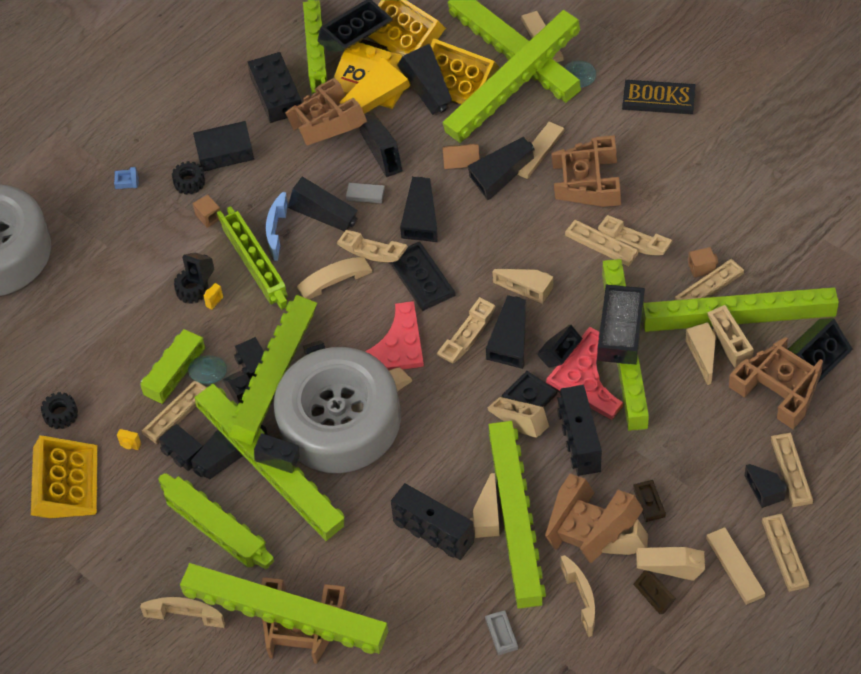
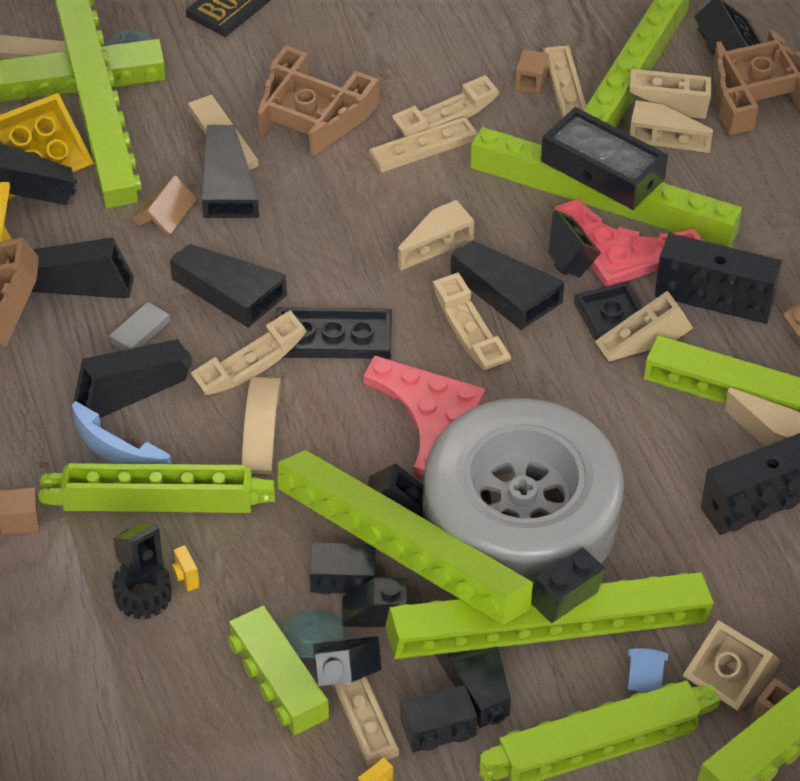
camera: 65 degrees left, 5 degrees down
(183, 385) = (346, 660): none -> black slope
(269, 523) = (646, 669): none -> medium blue tile
(293, 561) = (732, 665): none -> tan slope

